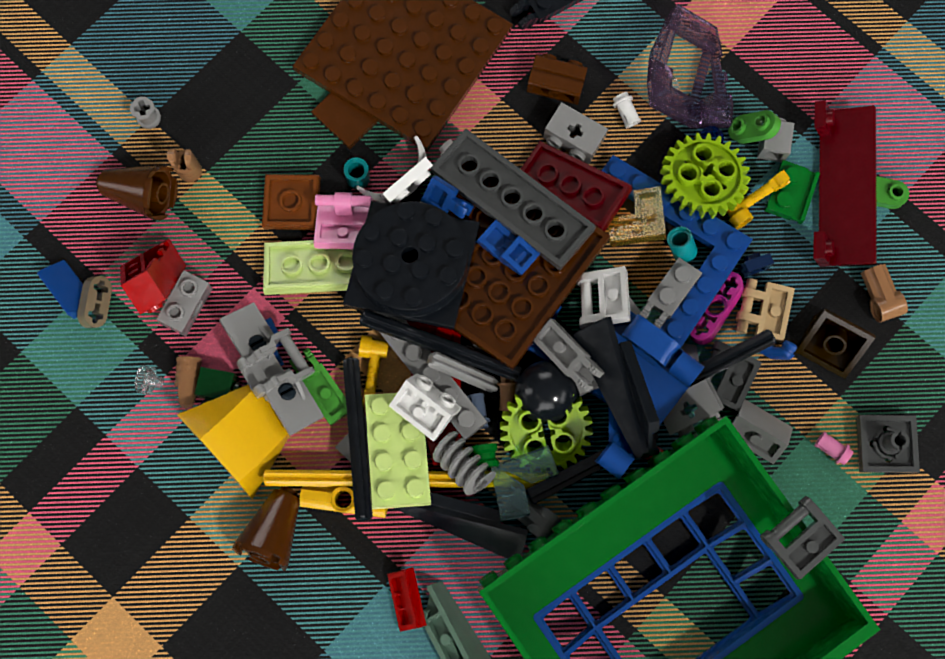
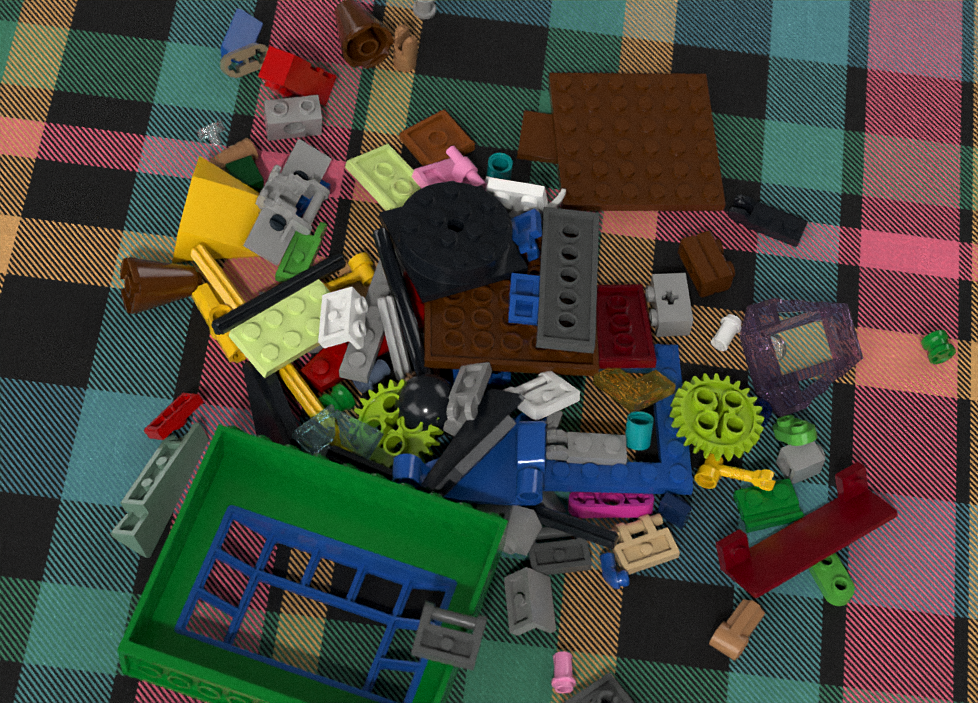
camera: 50 degrees right, 20 degrees down
(461, 466) = (317, 378): light grey piece -> none
(834, 342) = (657, 614): dark brown slope -> none

